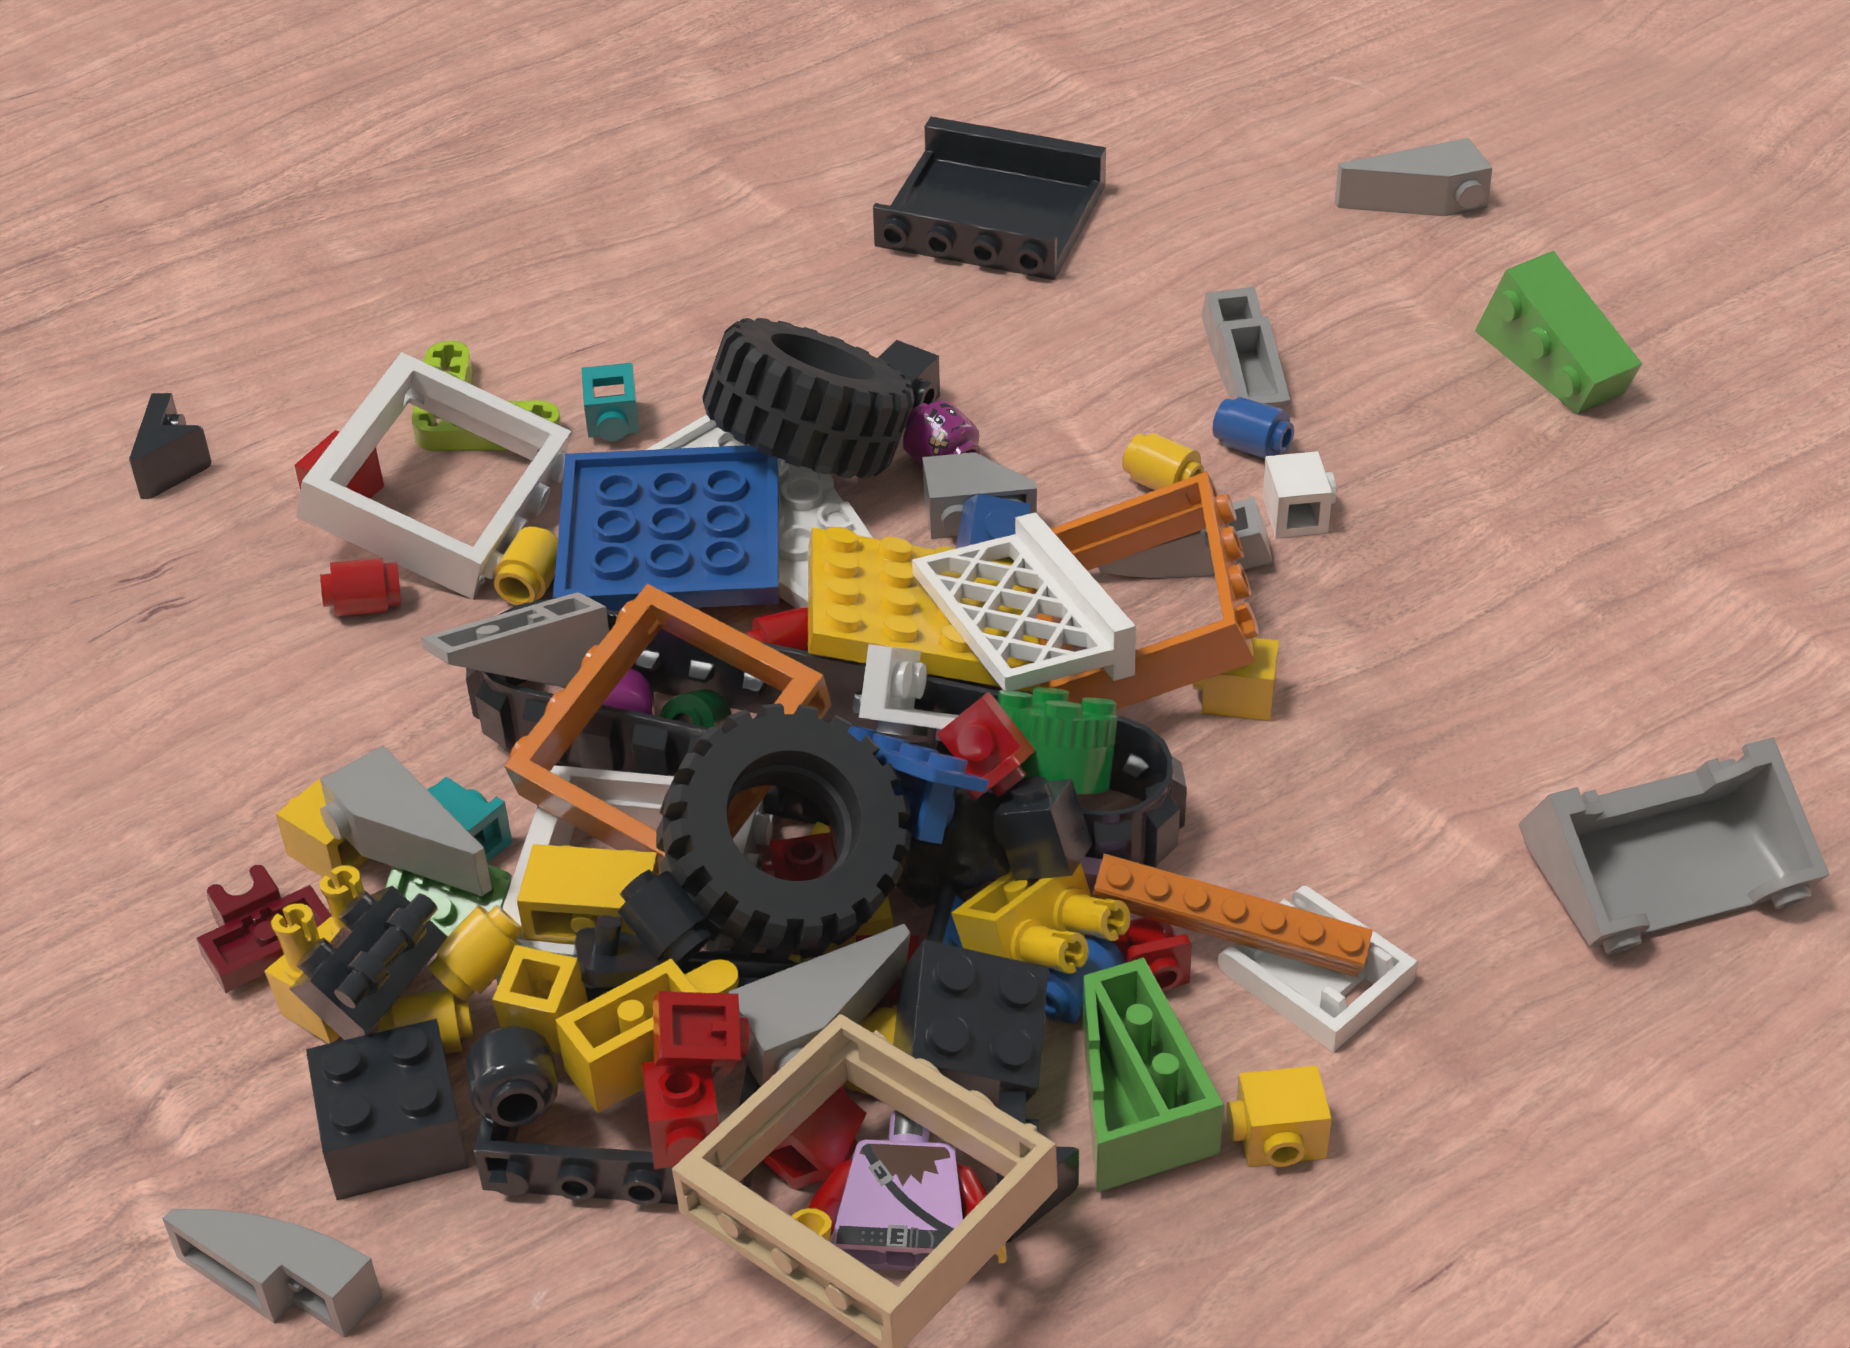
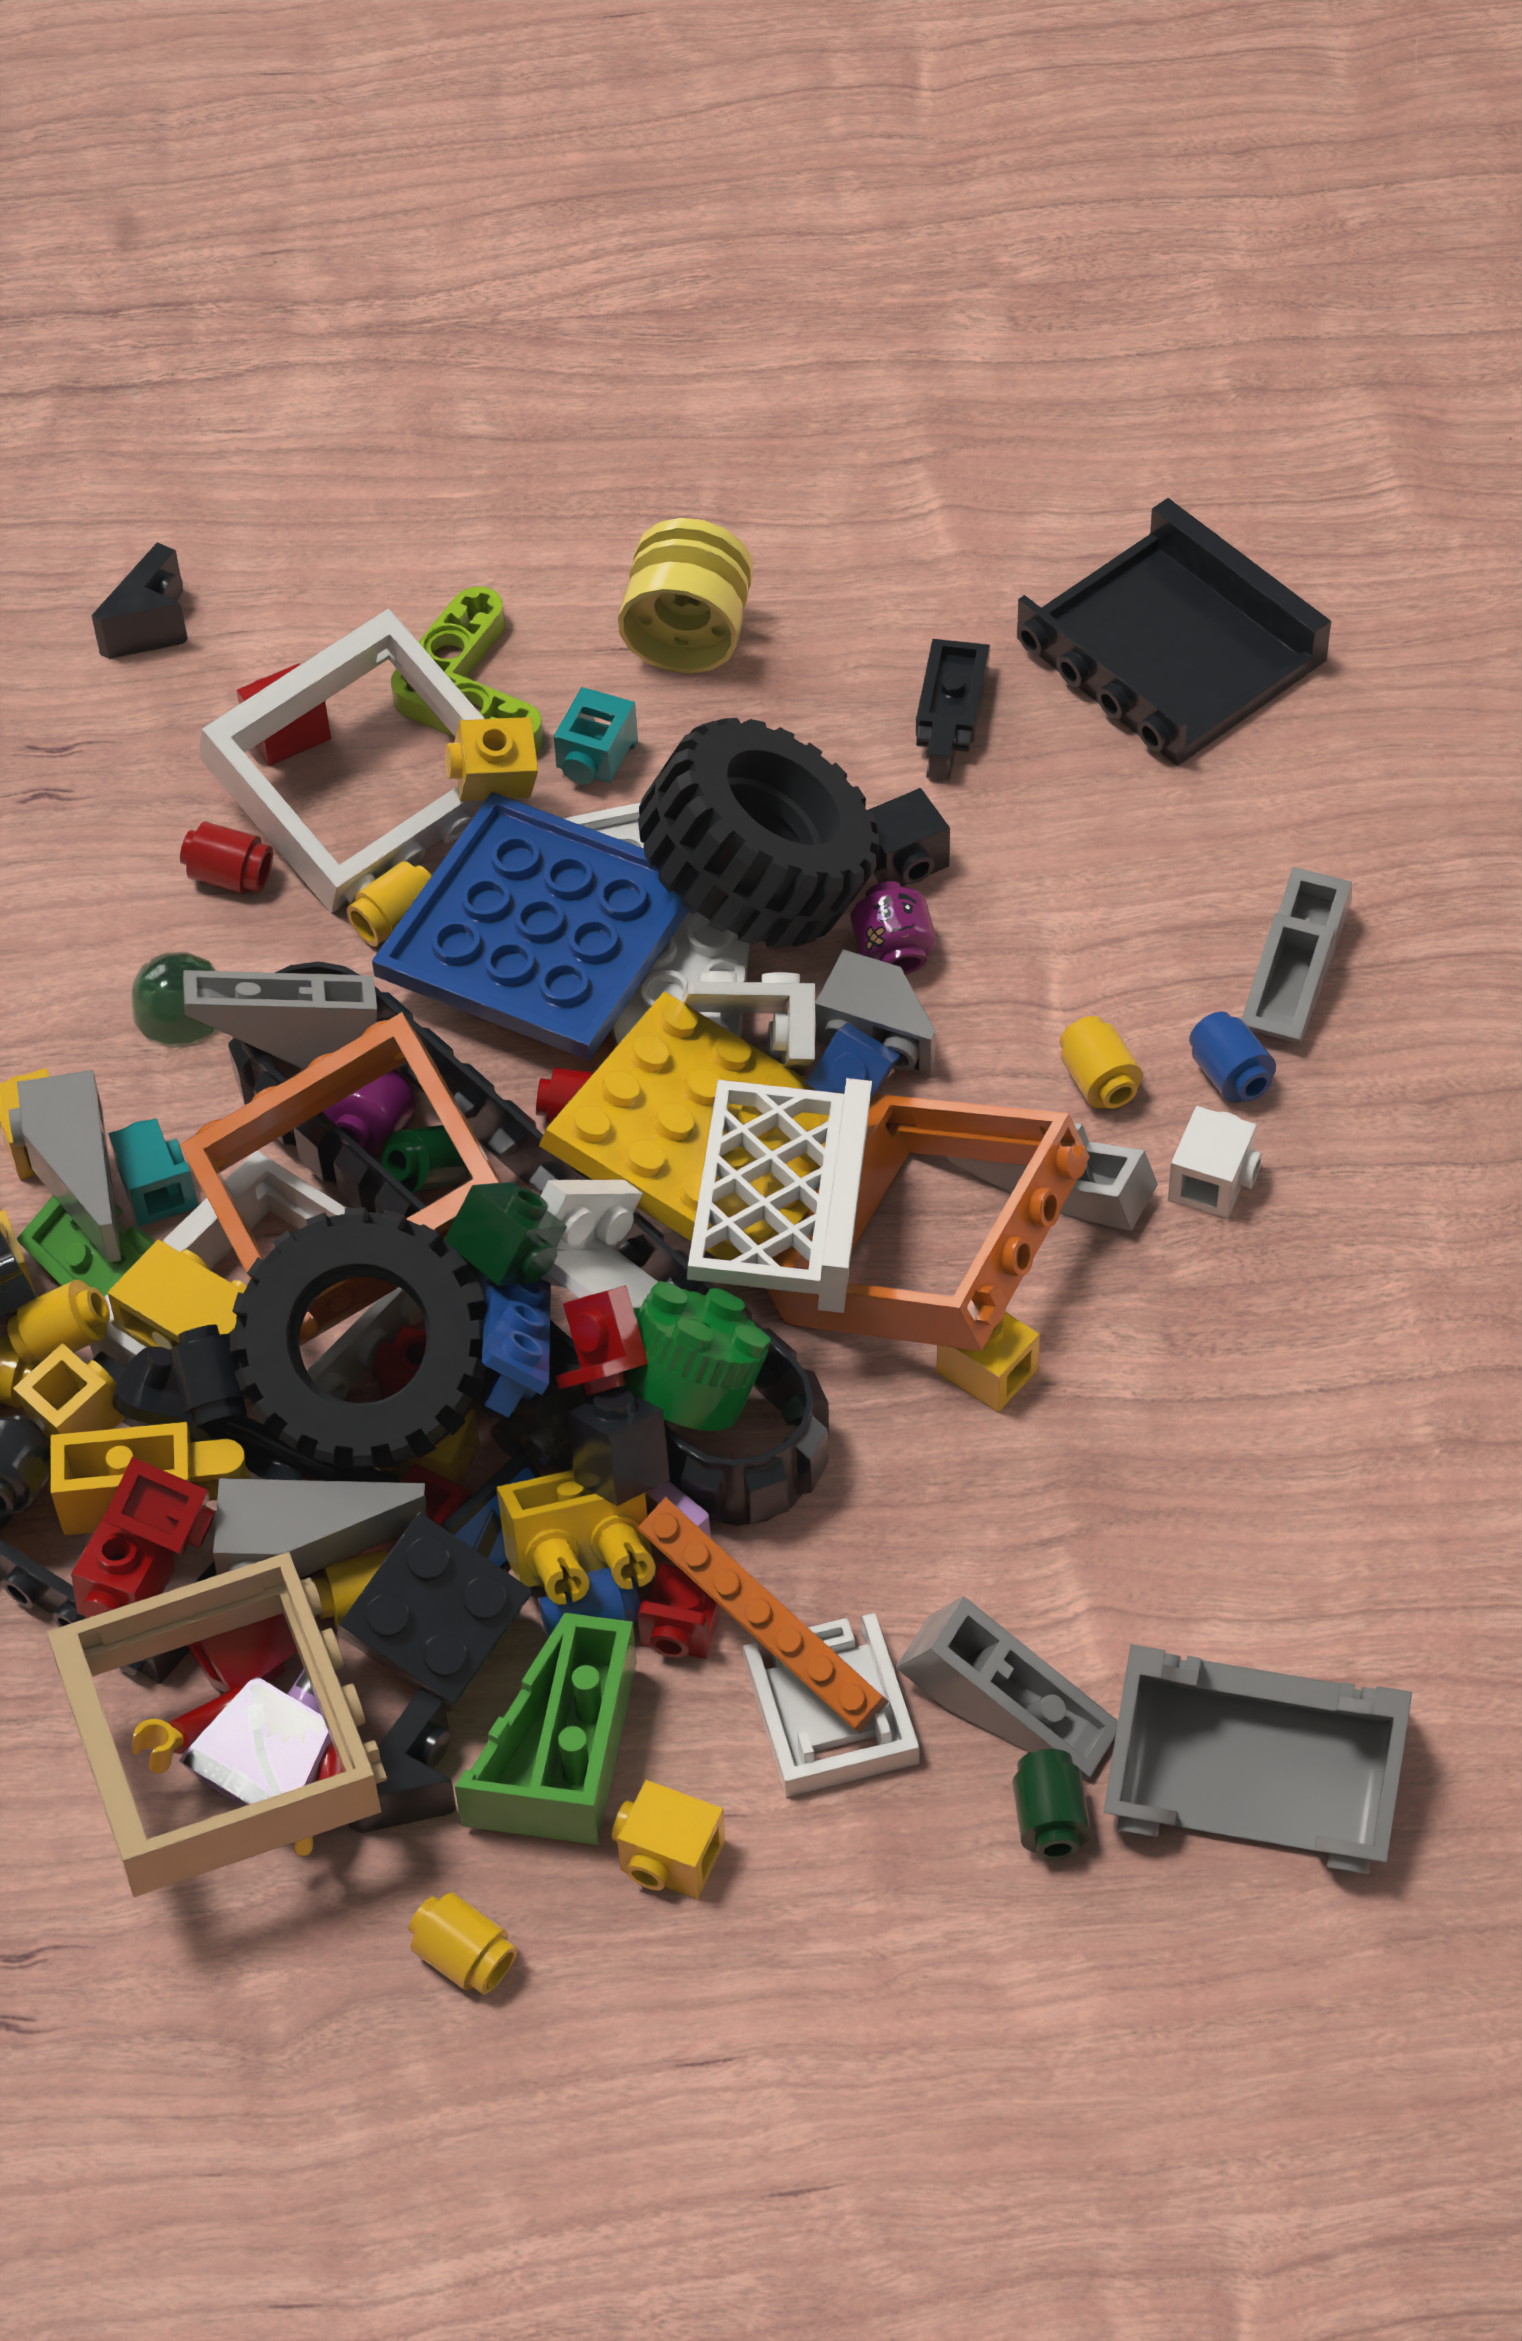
camera: 30 degrees right, 10 degrees up
(387, 698) = (159, 998): none -> clear green hair
(555, 425) = (493, 758): none -> yellow brick
(619, 285) = (686, 595): none -> light yellow wheel
(862, 695) = (506, 1233): none -> dark green brick
(864, 292) = (950, 702): none -> black hinge
(918, 499) = (780, 993): none -> white bracket
(1174, 1277) = (461, 1943): none -> yellow brick
(1443, 890) = (1004, 1686): none -> light grey slope
(1549, 955) = (1051, 1804): none -> dark green brick

